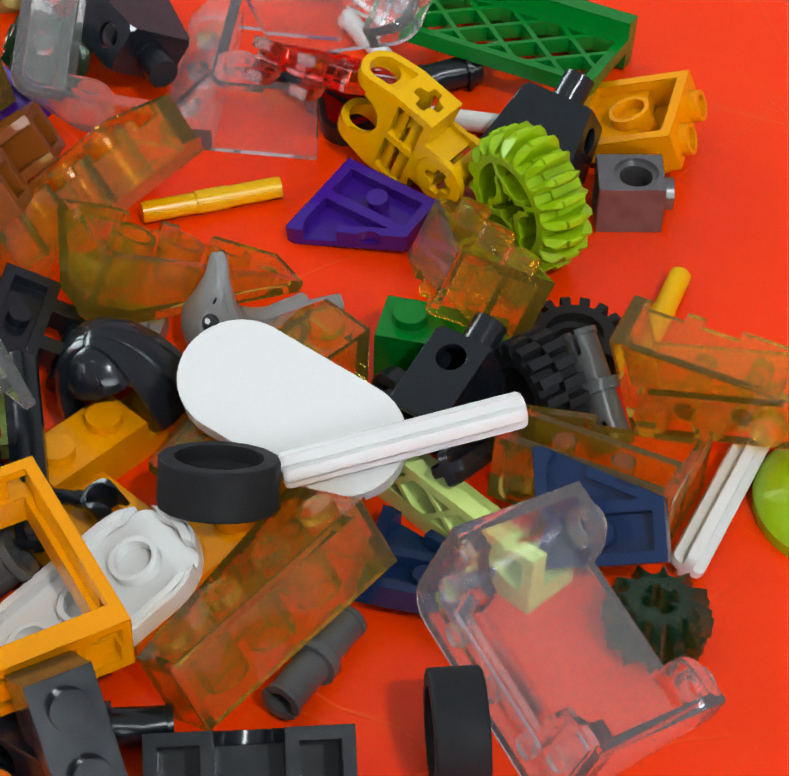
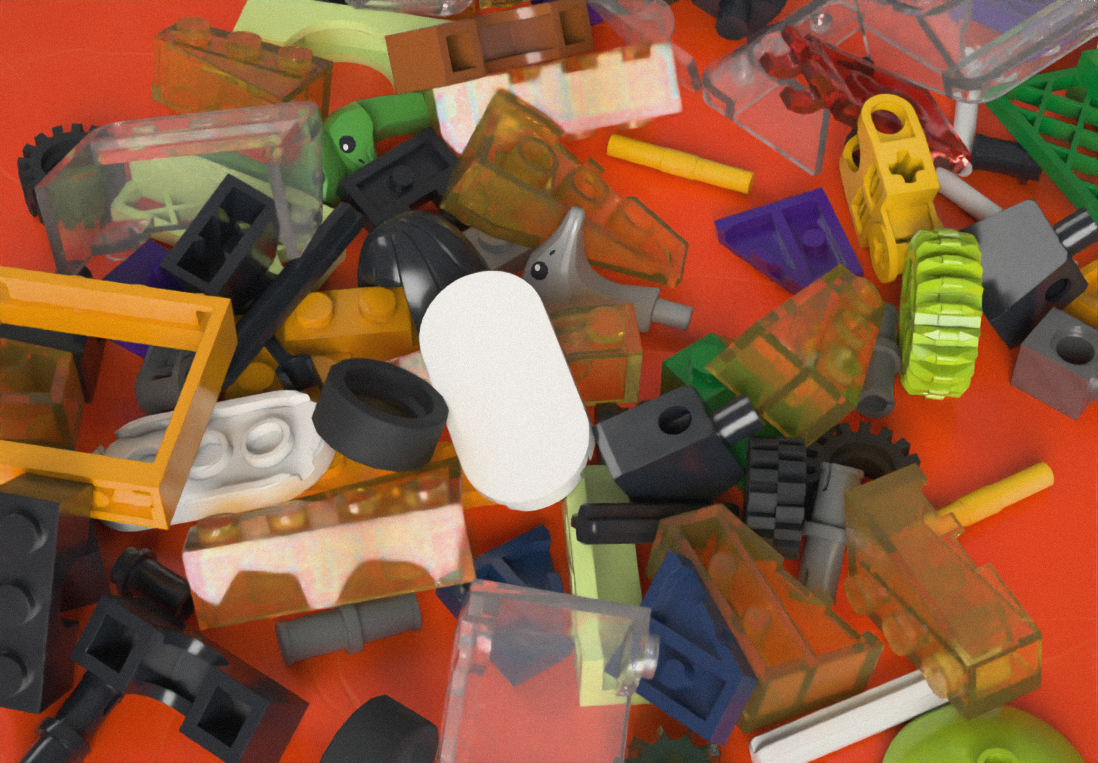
camera: 40 degrees right, 5 degrees up
(403, 439) = (565, 473): white axle -> none

